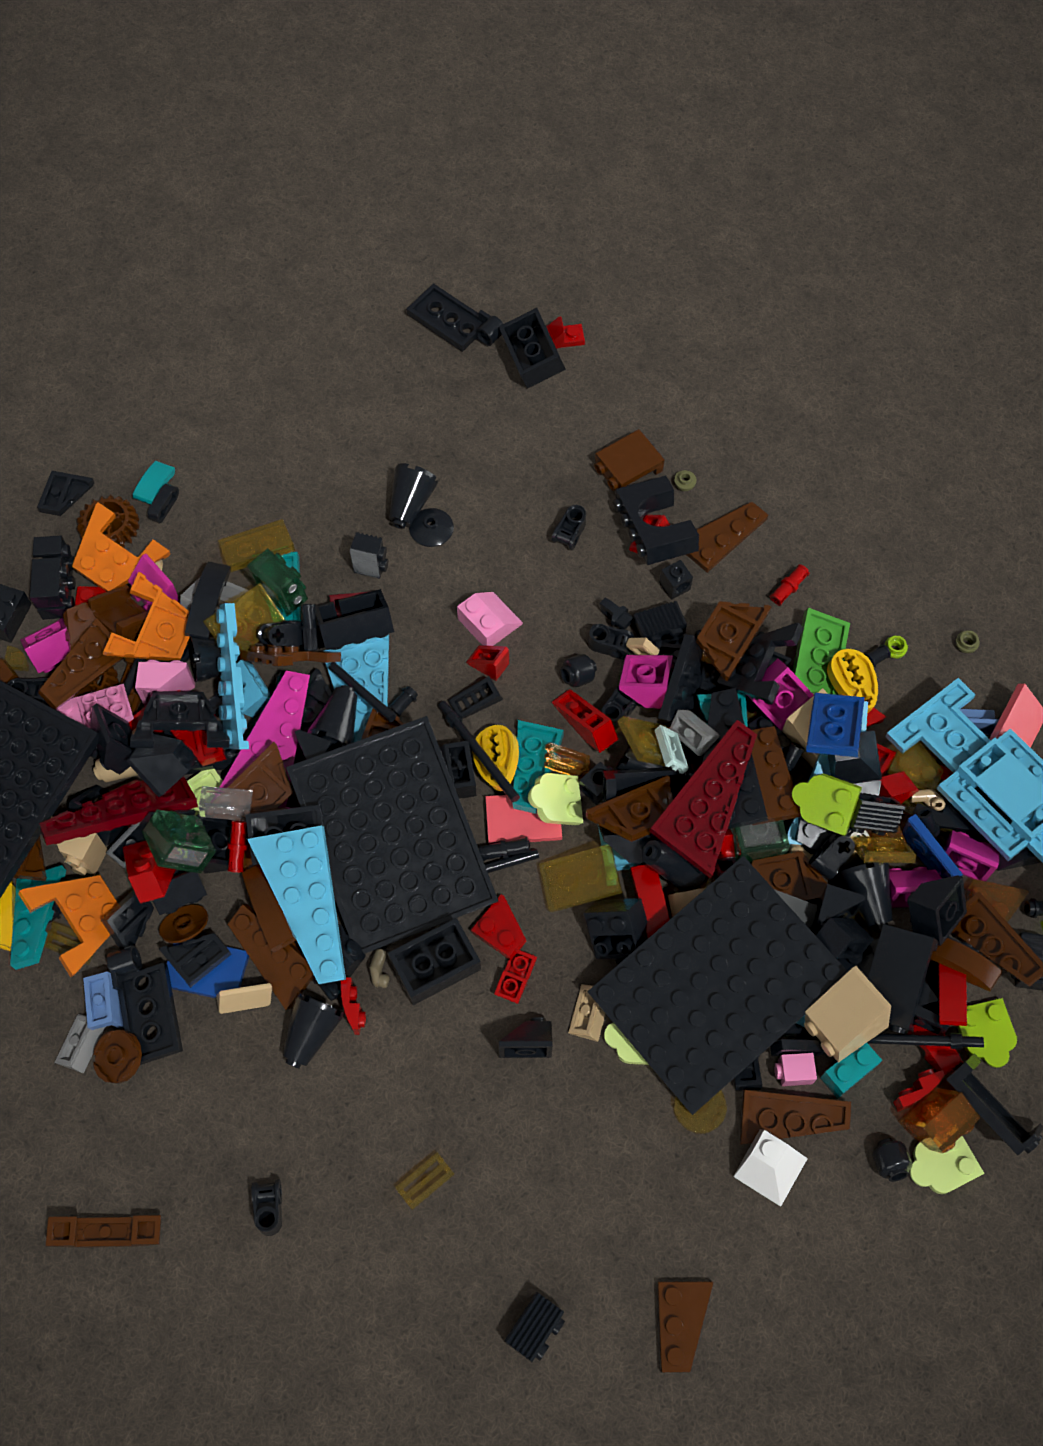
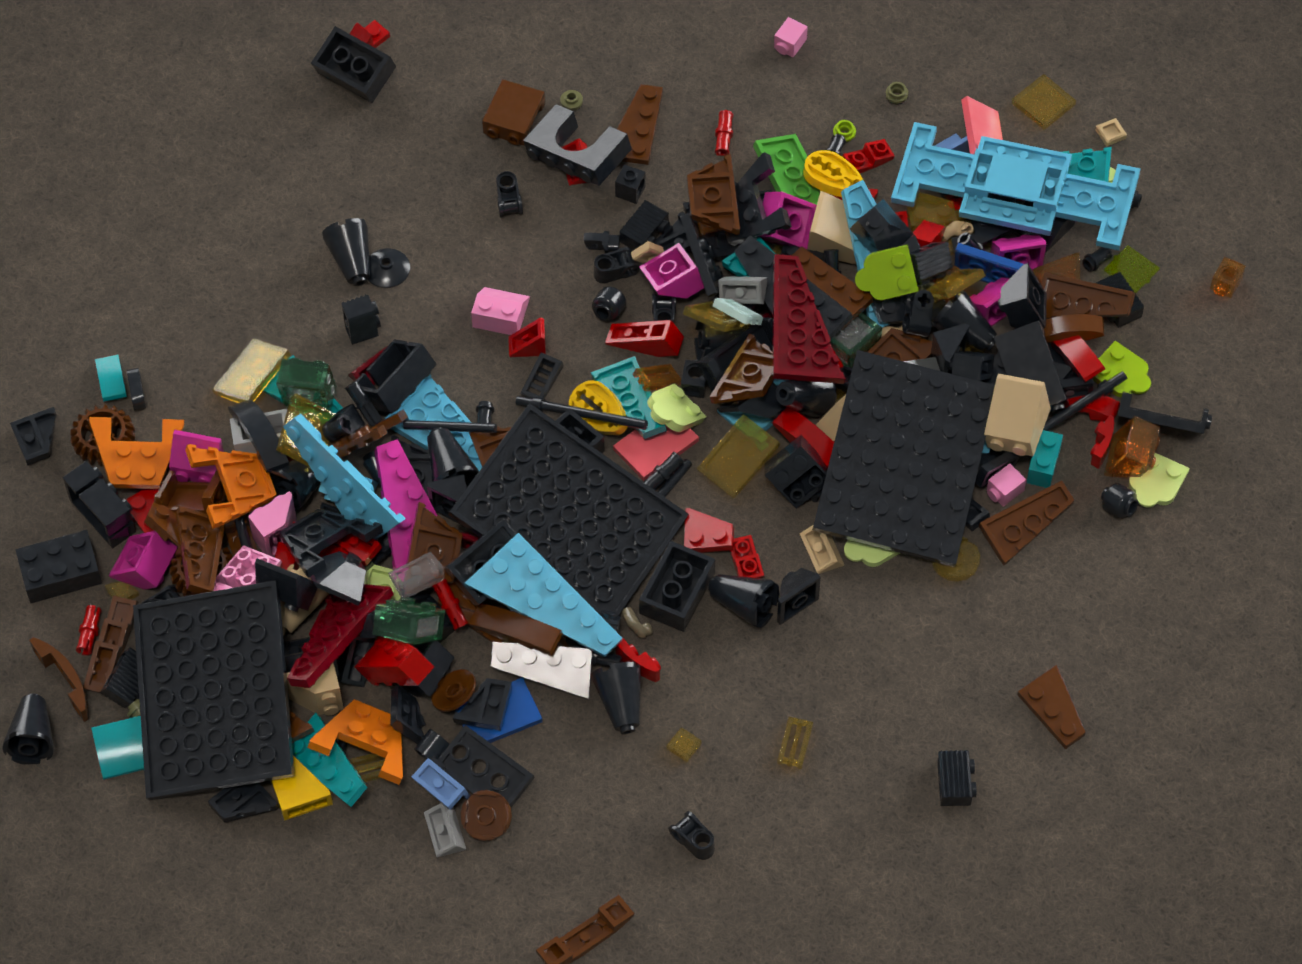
camera: 35 degrees left, 5 degrees down
(244, 998) = (550, 709): tan slope -> none
(330, 1111) = (684, 744): none -> clear yellow tile
(484, 326) = (291, 71): black hinge -> none
(484, 1013) = (746, 596): none -> black cone
(770, 1167) = (1037, 561): white slope -> none
(835, 725) = (853, 209): blue tile -> none
(900, 683) = (871, 156): none -> red slope
(908, 537) = (790, 37): none -> bright pink brick

